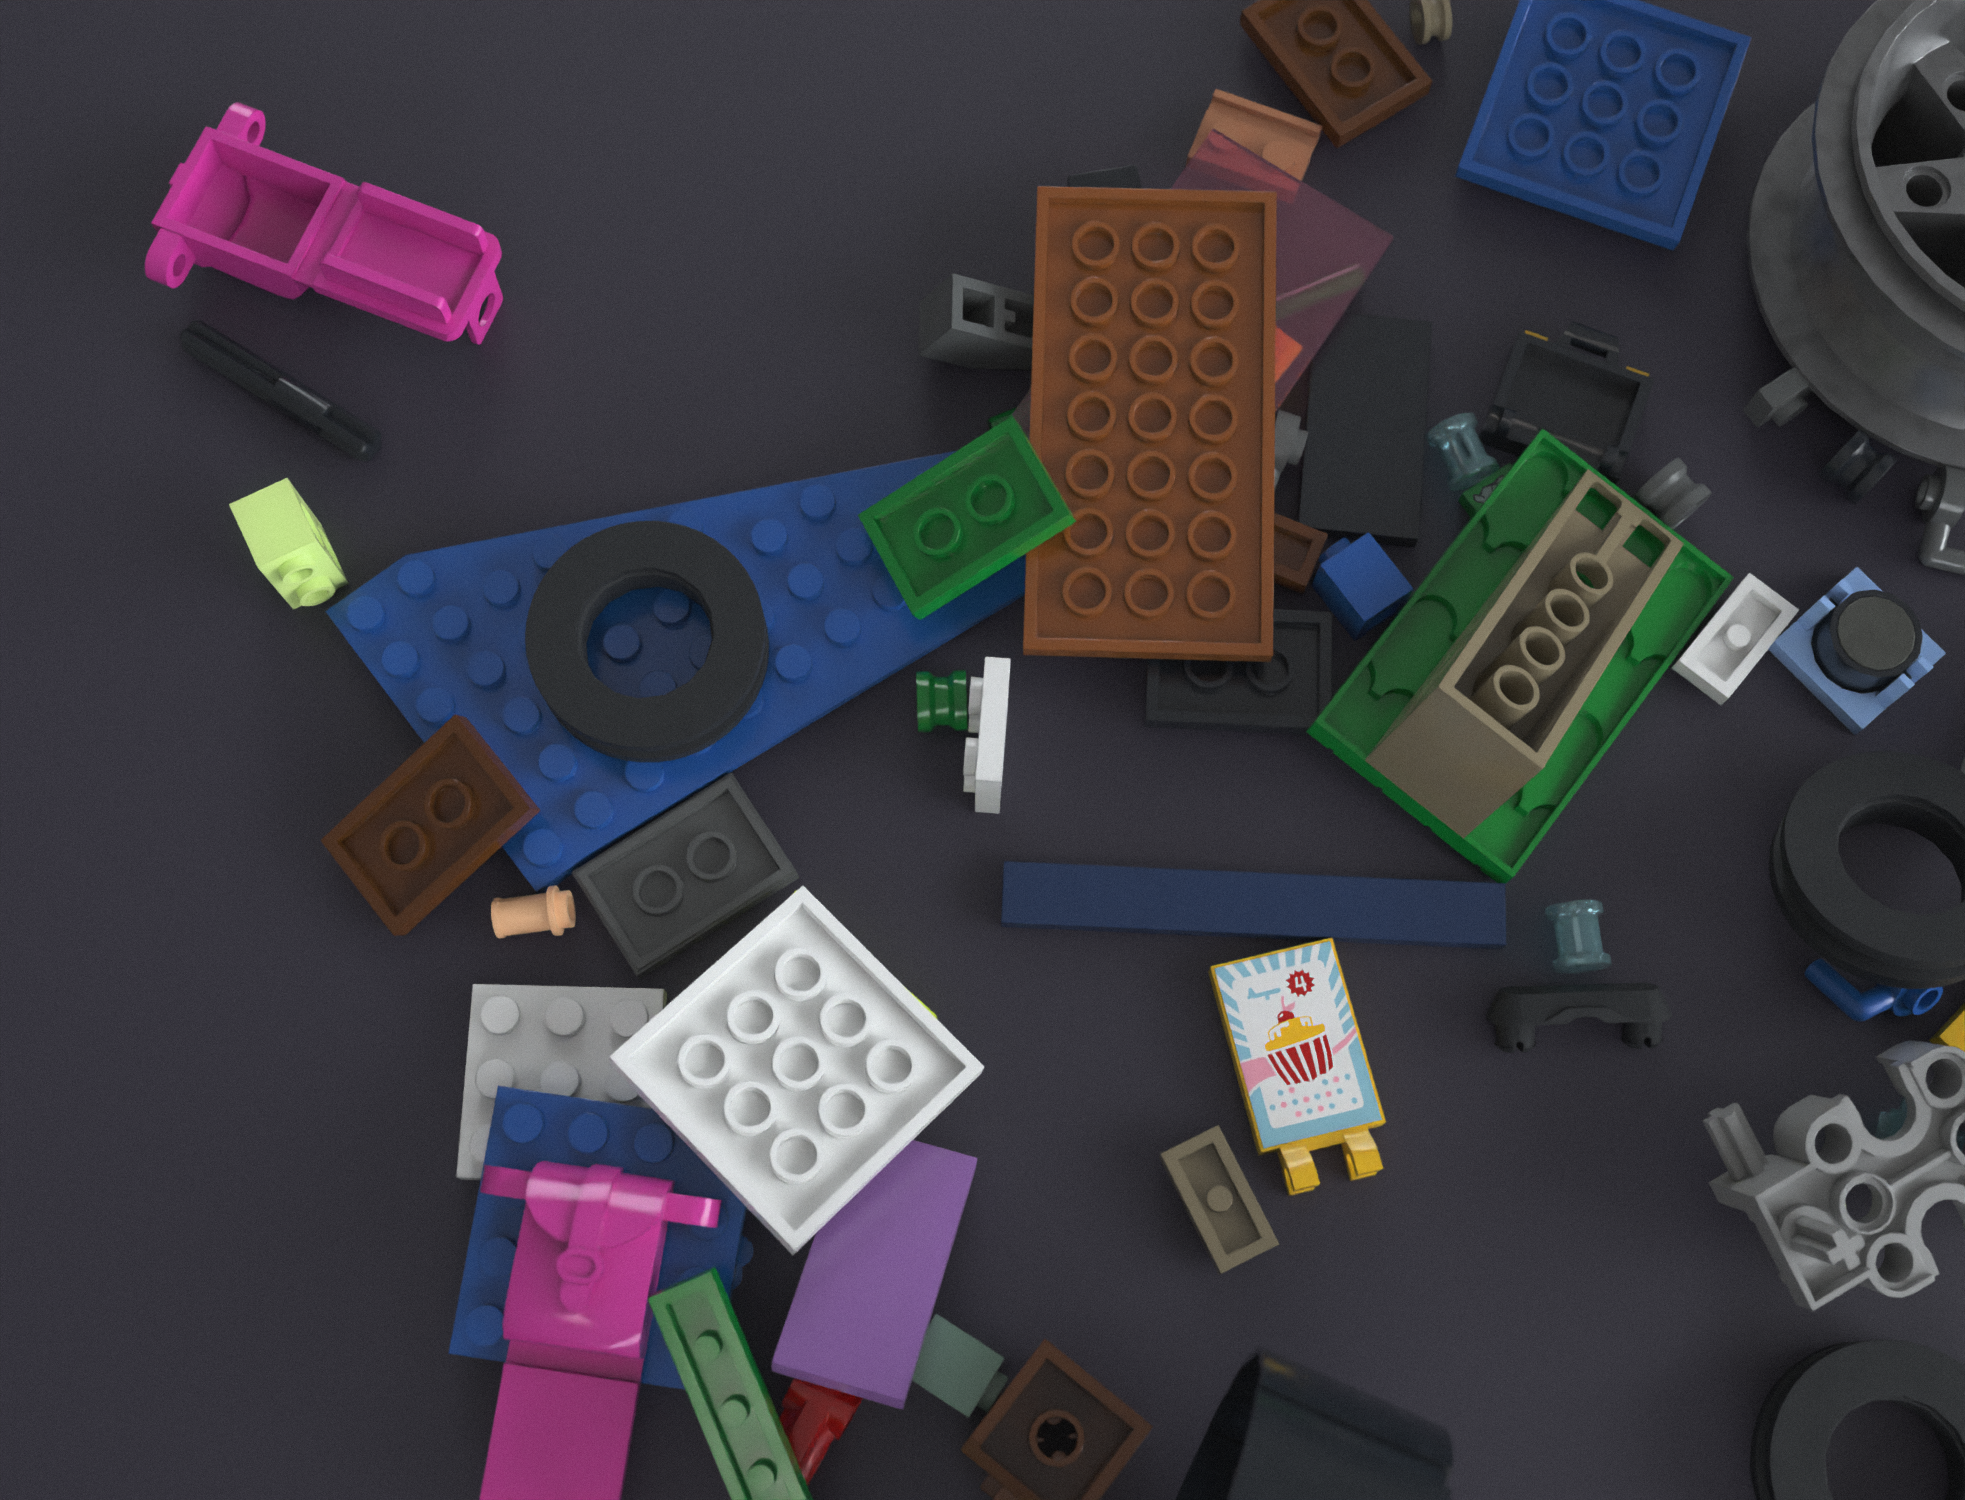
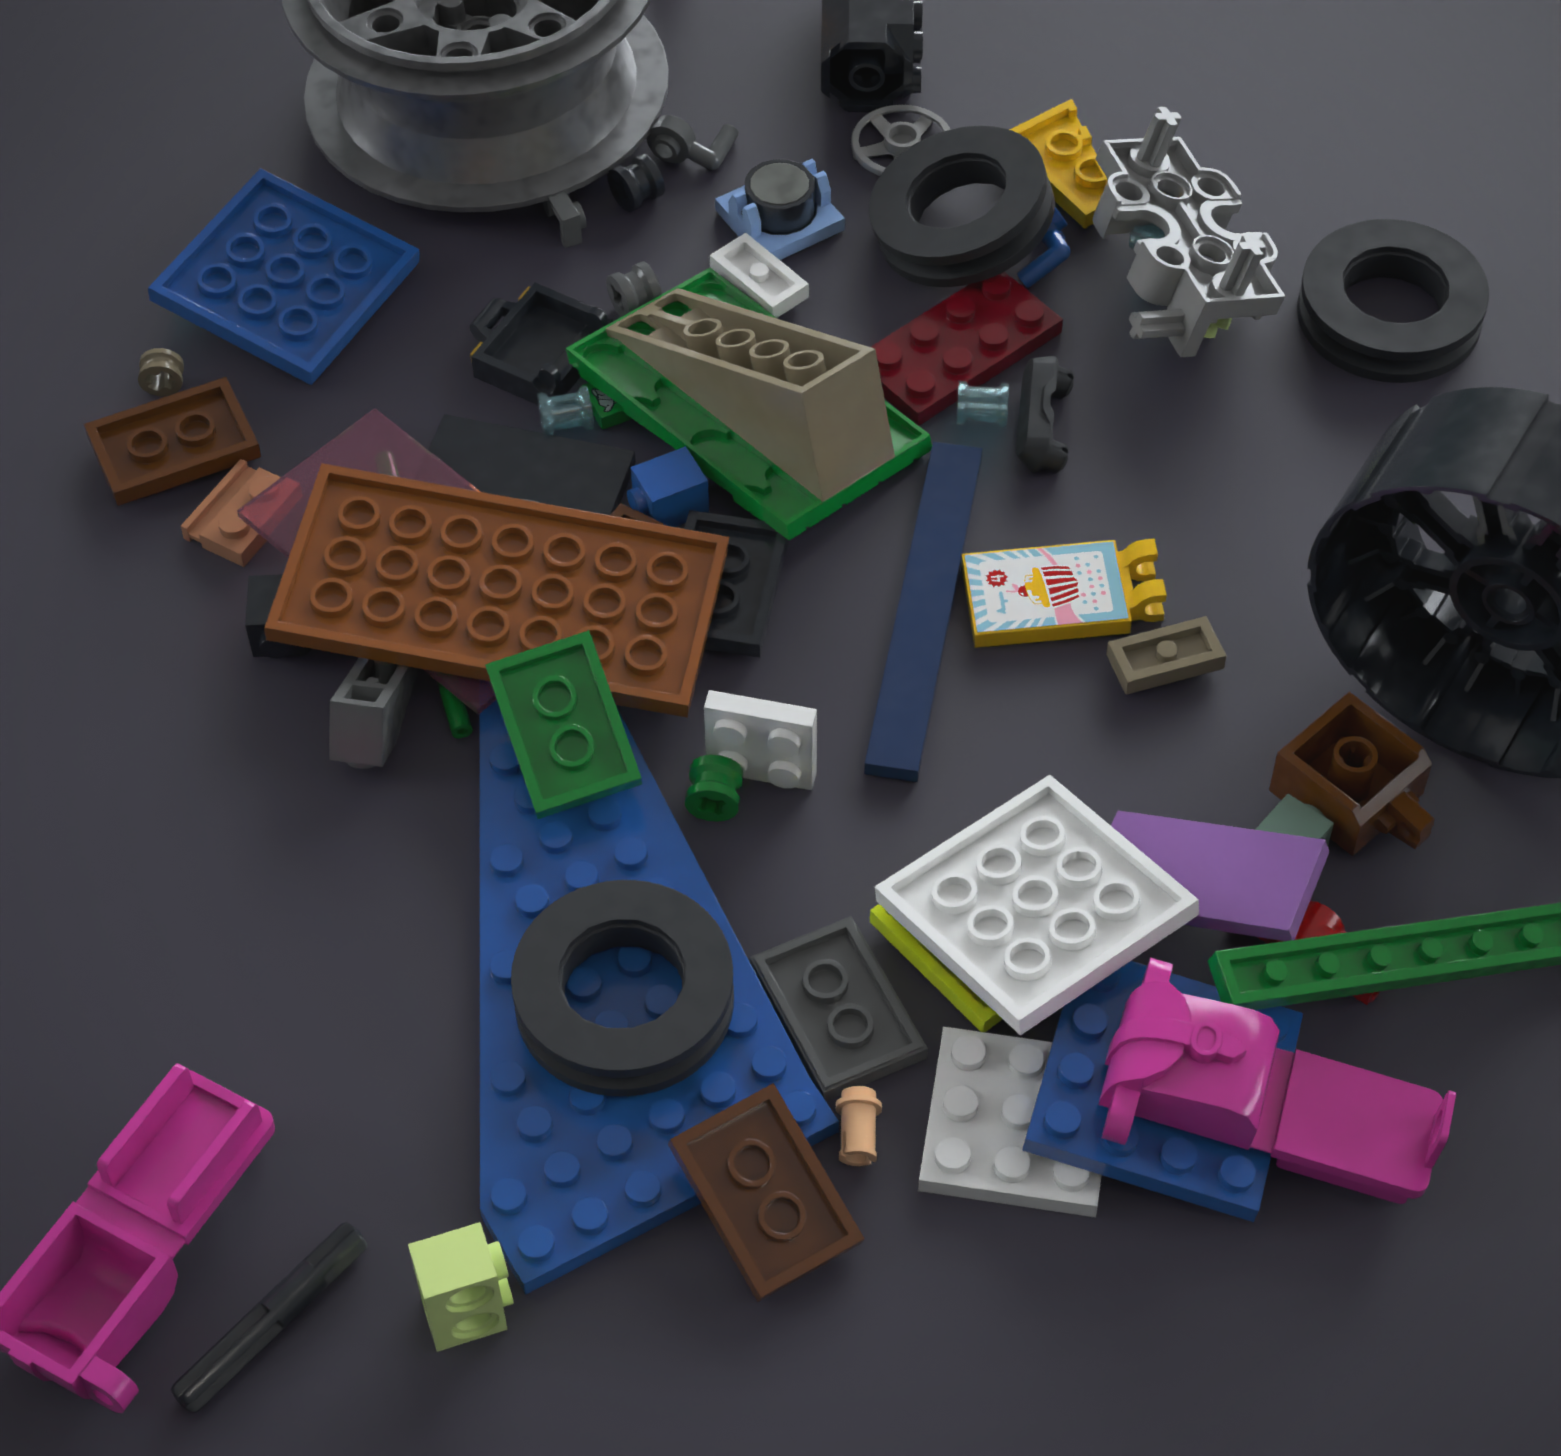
camera: 80 degrees left, 20 degrees down
(1680, 899) = (962, 340): none -> dark red plate

